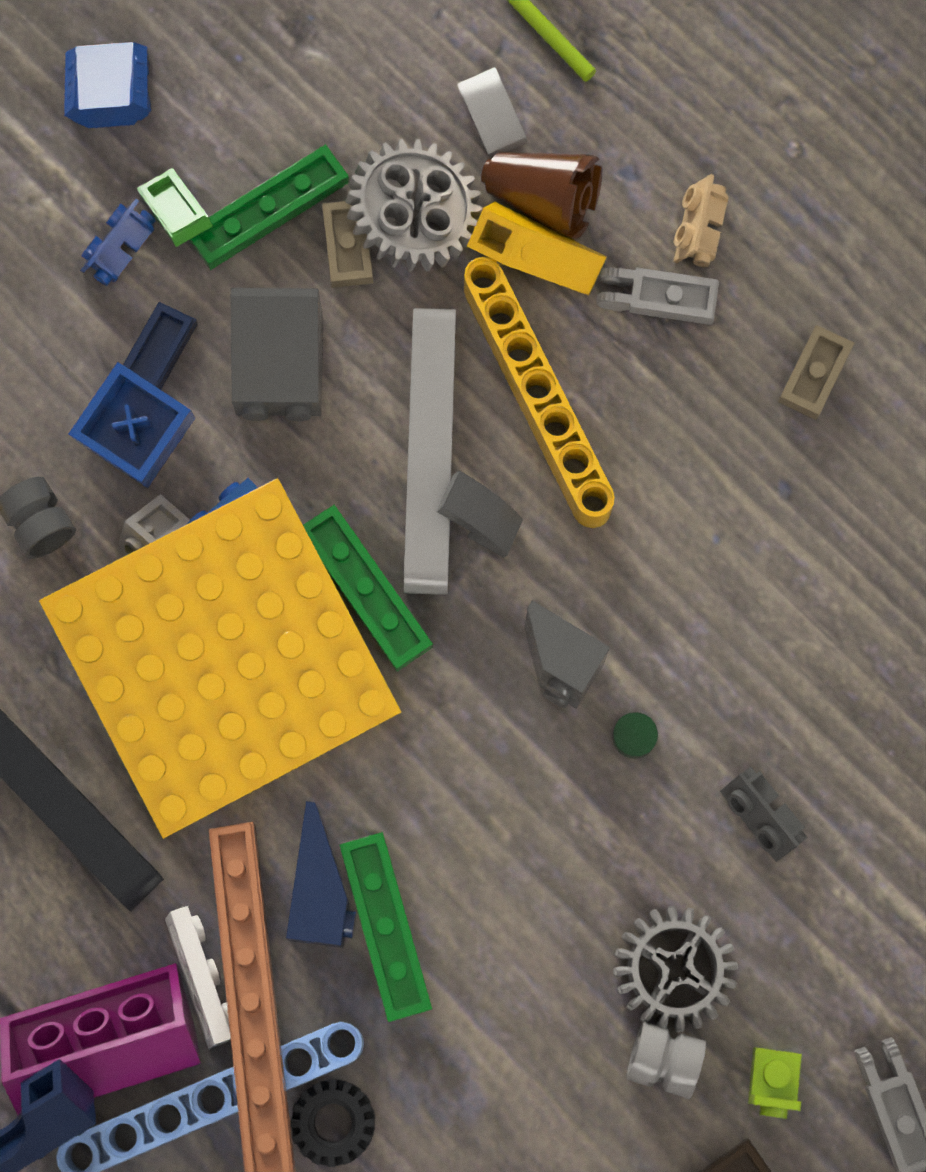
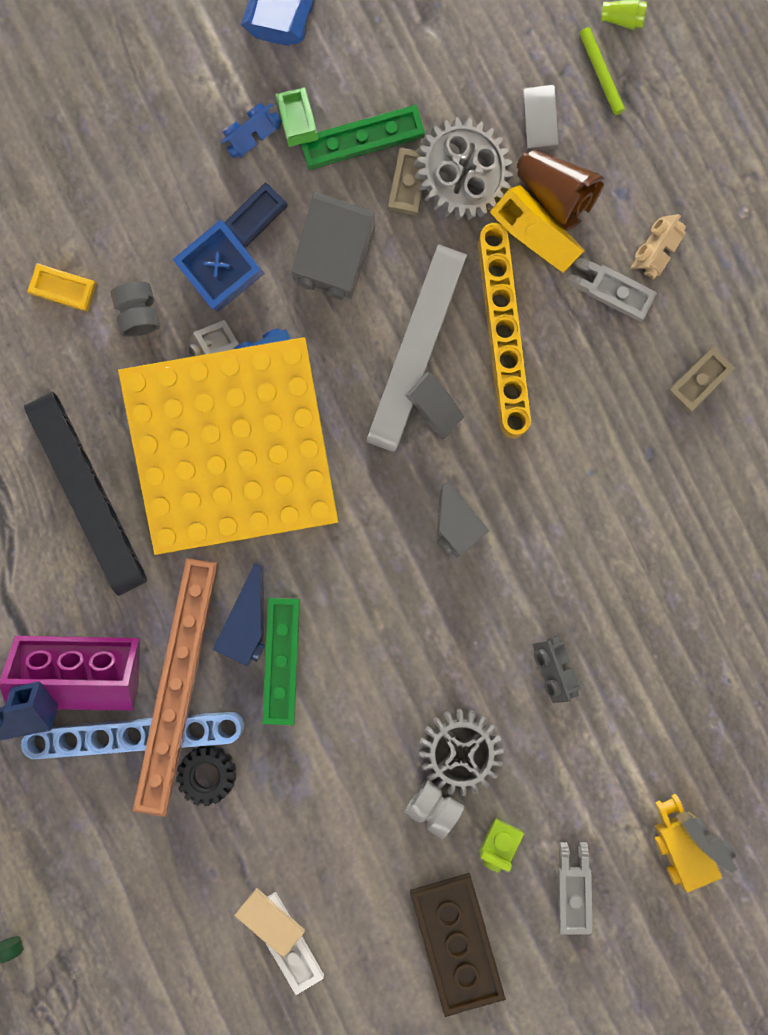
camera: 20 degrees right, 10 degrees up
(200, 975) = (150, 652): white plate -> none
(367, 589) = (342, 430): green plate -> none
(635, 735) = (488, 589): dark green tile -> none

